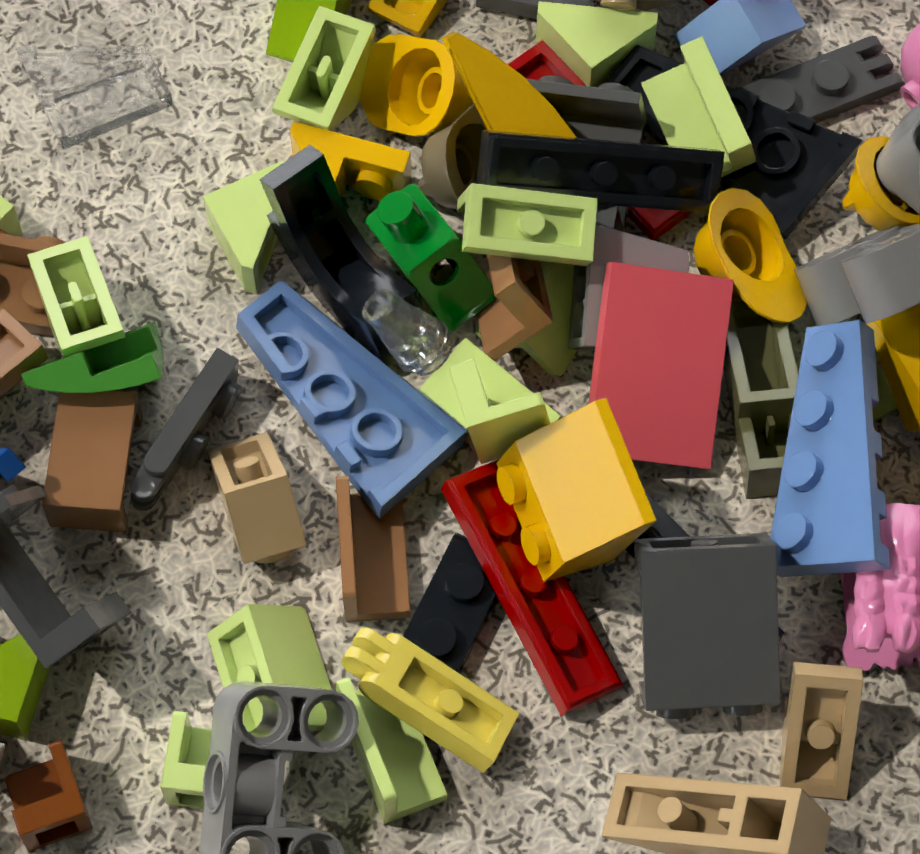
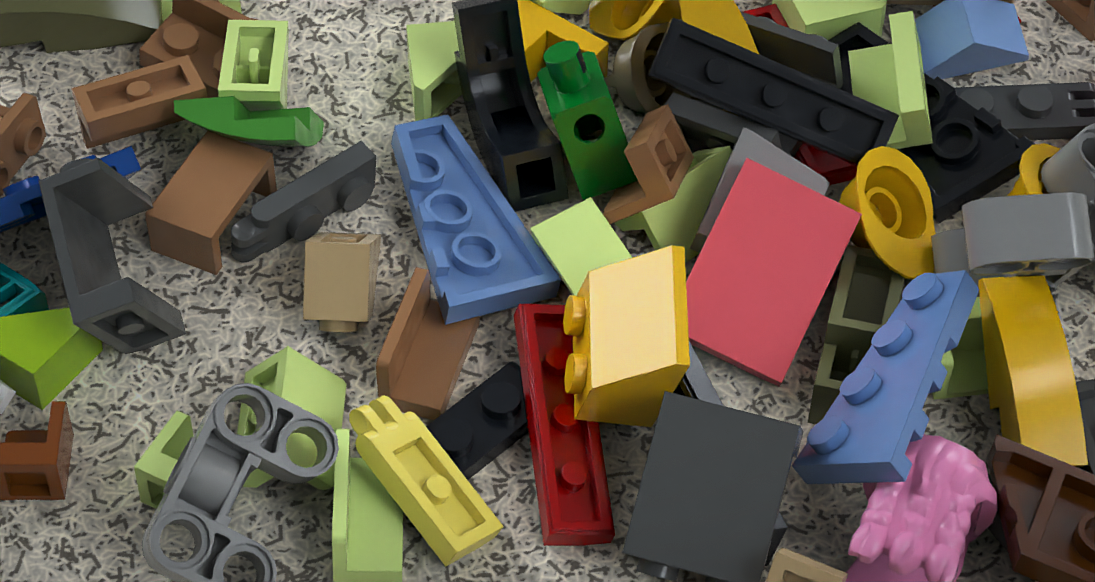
camera: 20 degrees right, 15 degrees down
(410, 334) = (538, 175): clear cone -> none
(497, 426) = (575, 242): yellowish green panel -> none
(528, 224) = (680, 103): yellowish green panel -> none

